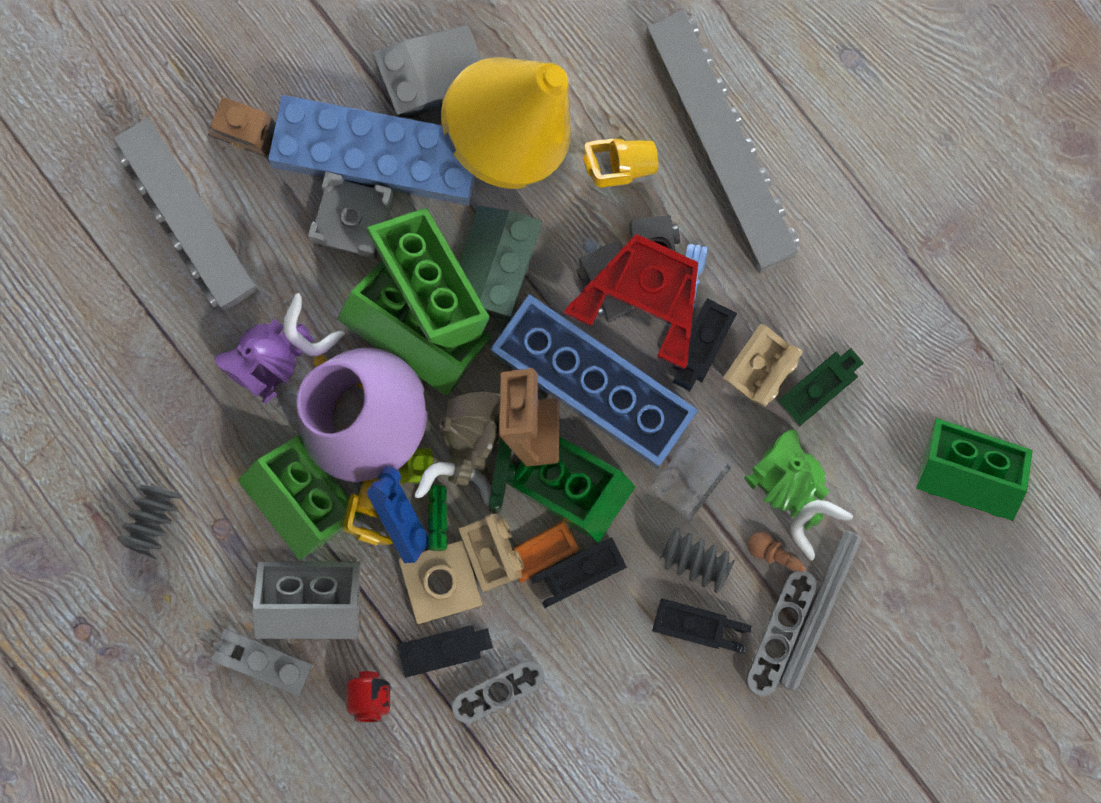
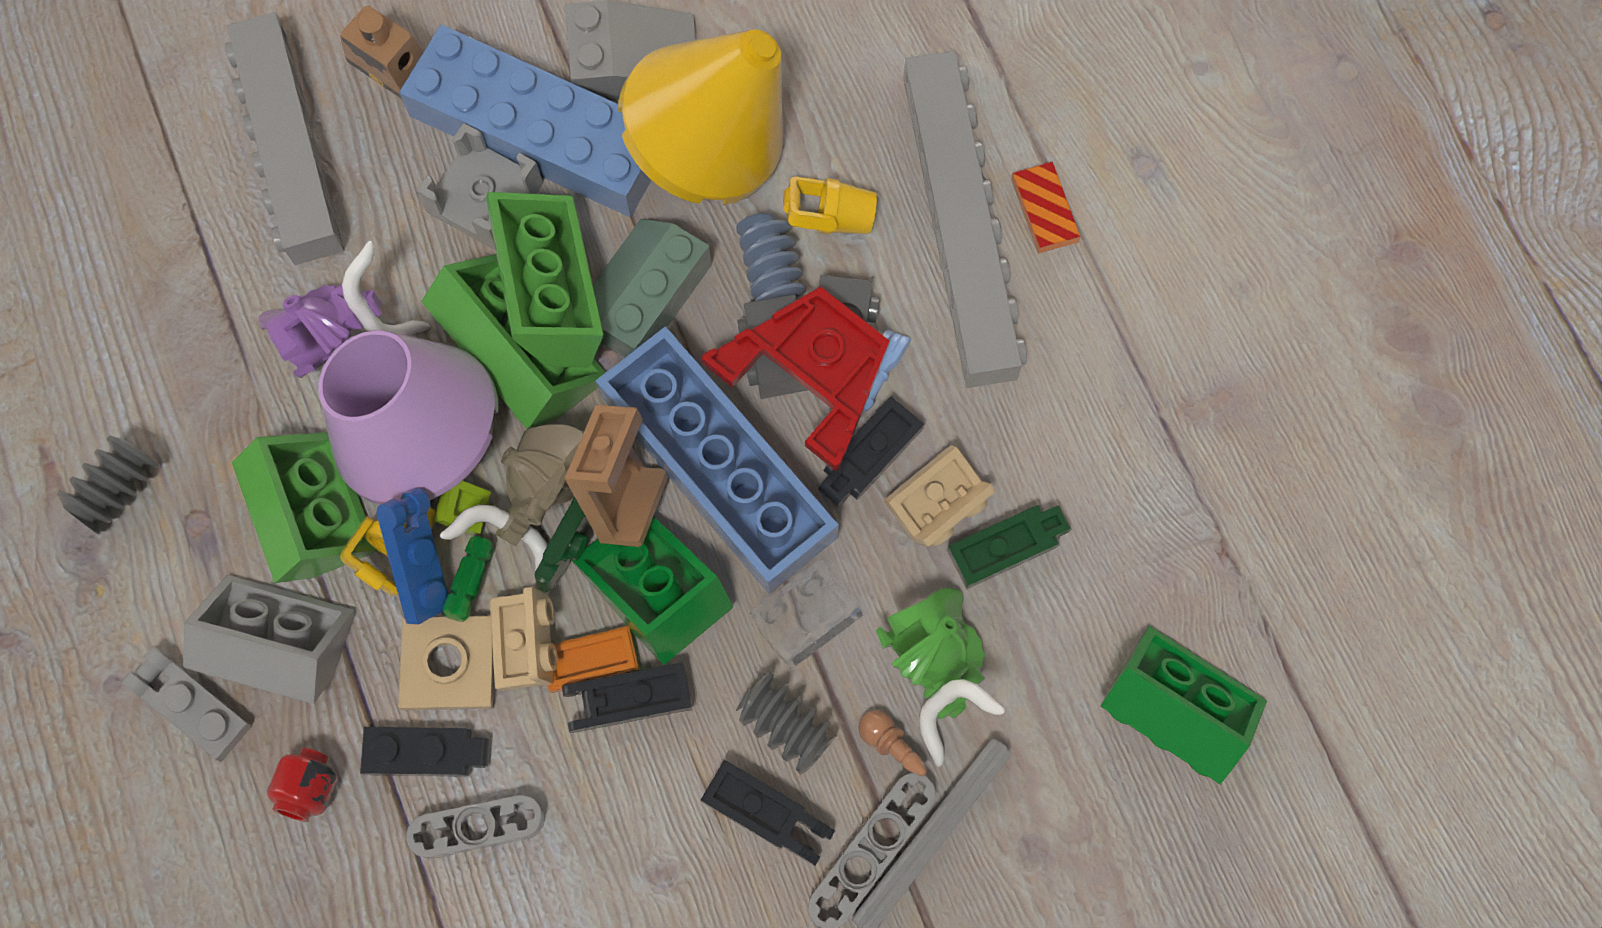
camera: 20 degrees right, 10 degrees down
(588, 216) = (767, 257): none -> sand blue piece
(782, 115) = (1045, 207): none -> tile

